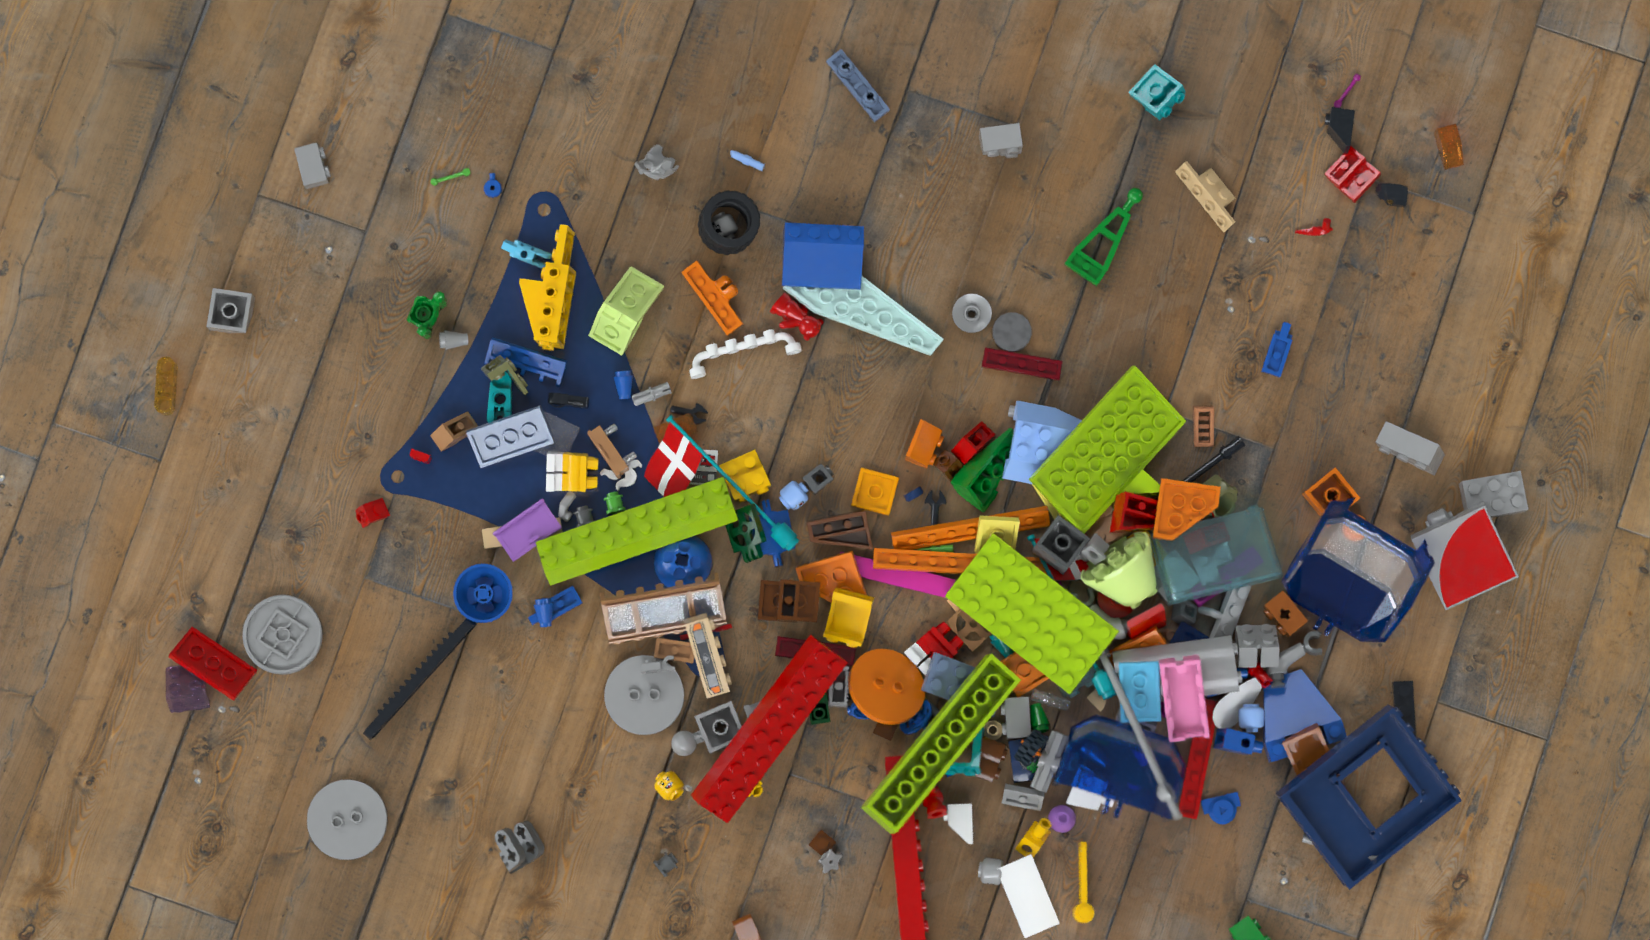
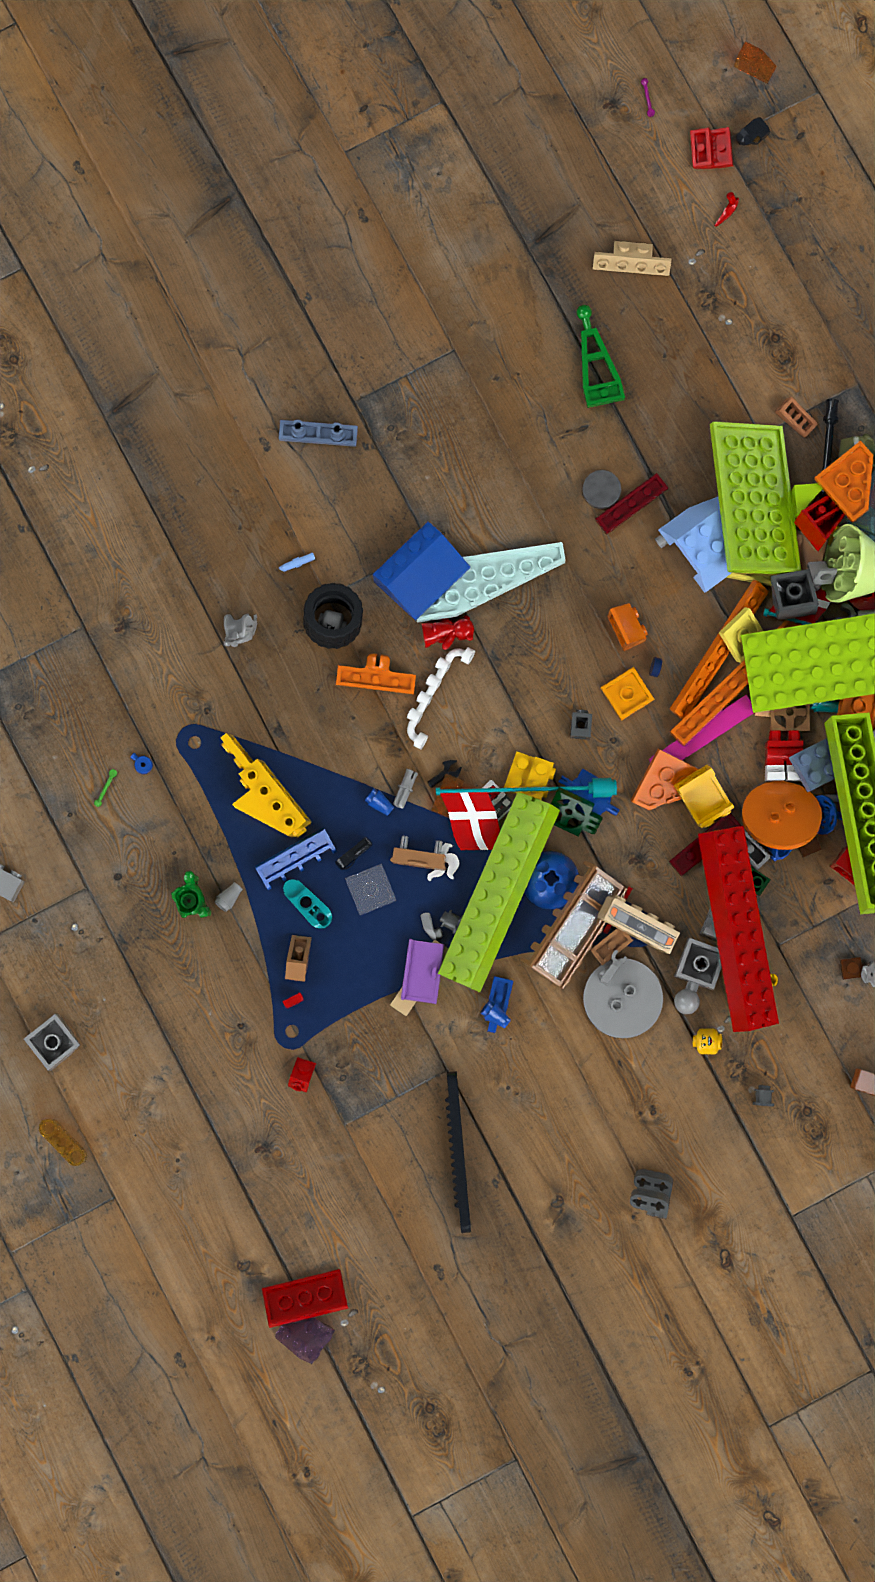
camera: 50 degrees left, 0 degrees up
(282, 634) = (331, 1225): light grey plate -> none
(347, 819) = (514, 1304): light grey plate -> none
(475, 585) = (455, 1040): blue piece -> none
(496, 368) = (283, 884): olive bracket -> none
(510, 436) = (341, 920): plate -> none
(517, 251) = (207, 789): medium azure hinge -> none
(576, 472) = (408, 901): yellow hips -> none
(614, 503) = (461, 889): bright green brick -> none
(624, 310) = (326, 750): yellowish green bracket -> none
(789, 601) = (653, 828): reddish brown bracket -> none
(794, 495) = (576, 754): light blue head -> none
(843, 529) = (634, 742): reddish brown wedge -> none
(935, 506) = (678, 660): black bar -> none
(943, 548) = (715, 682): bright green pin -> none
(948, 464) = (659, 622): reddish brown bracket -> none
(972, 442) = (657, 590): red slope -> none
(973, 303) = (564, 495): light grey dish -> none
(982, 474) = (686, 606): green wedge -> none
(1001, 140) = (457, 366): light grey slope -> none
(1158, 92) = (525, 227): teal plate -> none
(1278, 351) = (791, 315): blue hinge -> none
(1340, 127) = (671, 124): black slope -> none

